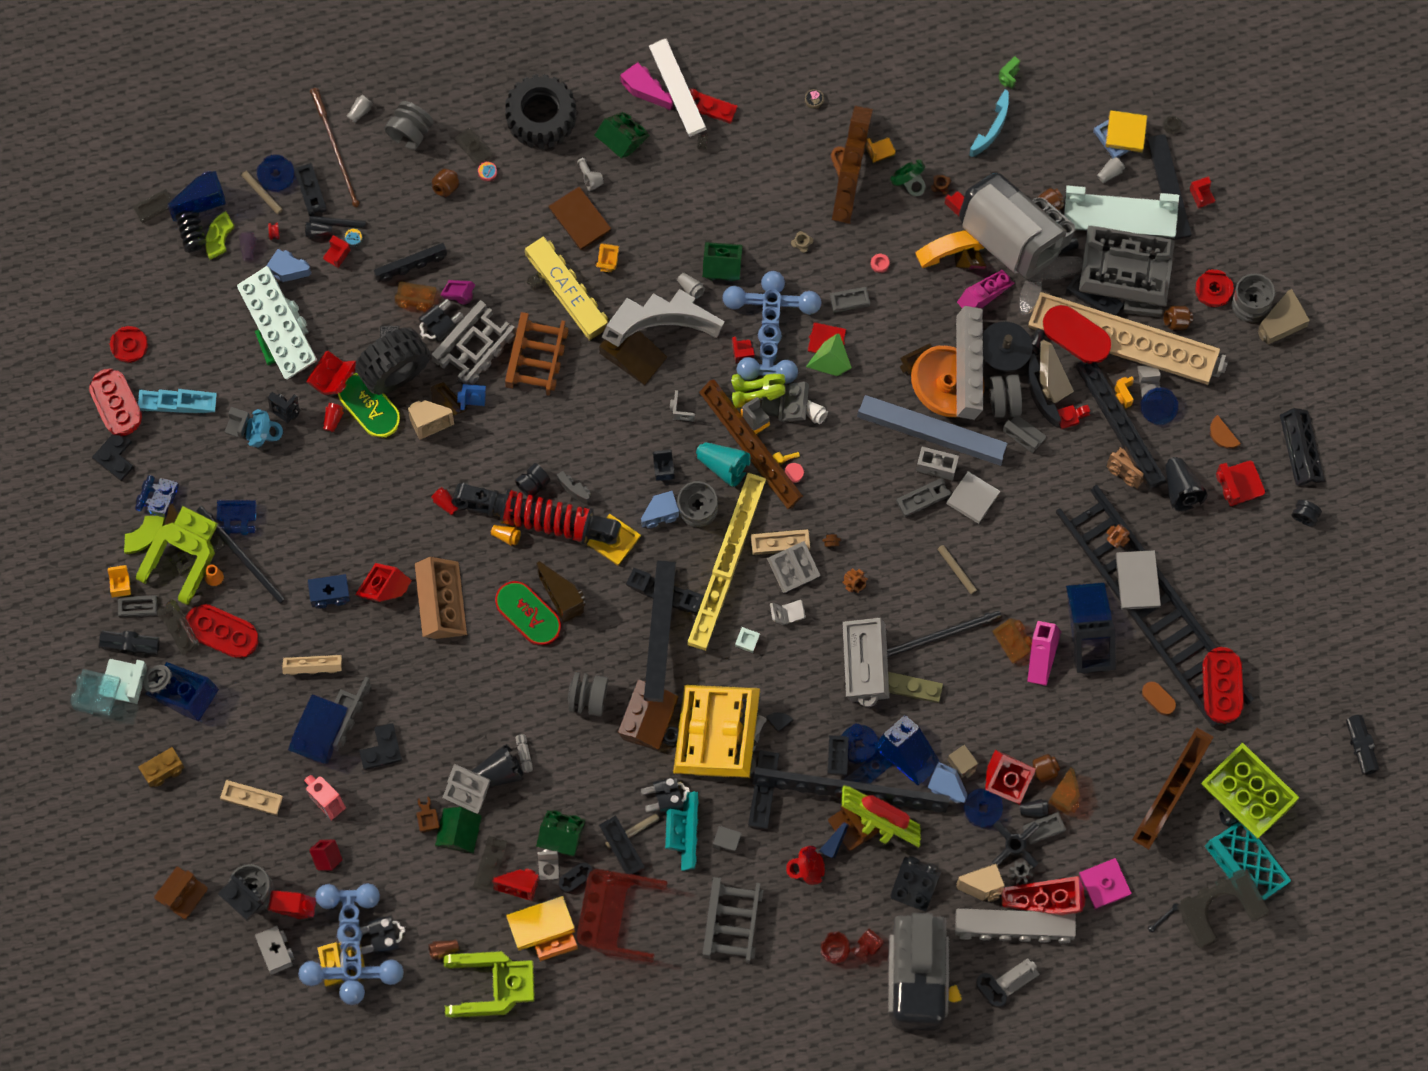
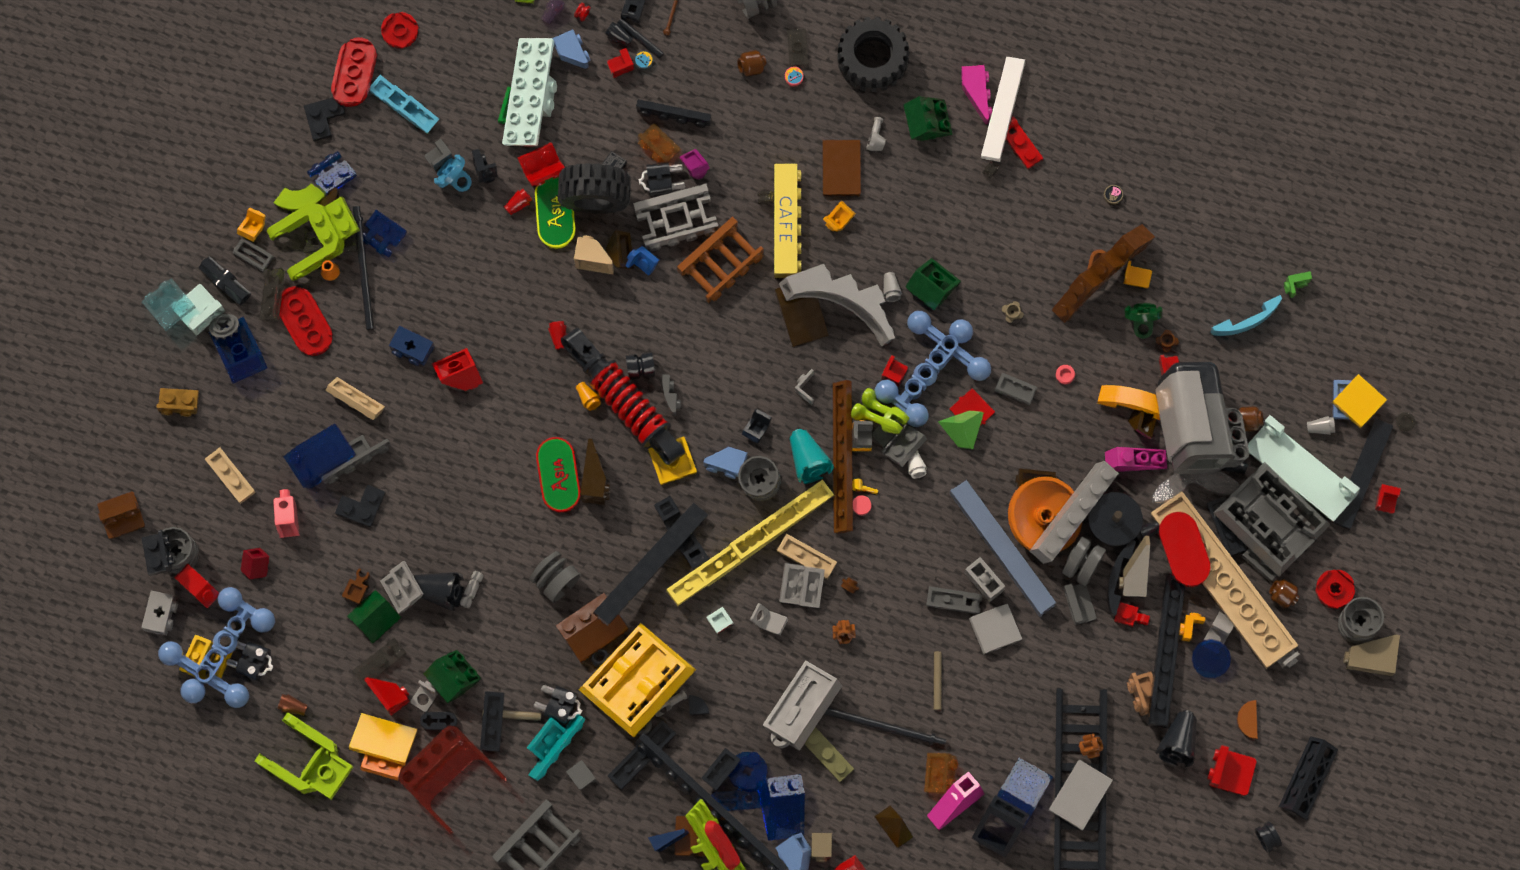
camera: 40 degrees right, 5 degrees up
(440, 598) = (496, 414): medium nougat slope -> none
(810, 866) = (631, 845): red tile -> none
(1008, 706) = (894, 826): none -> dark brown slope

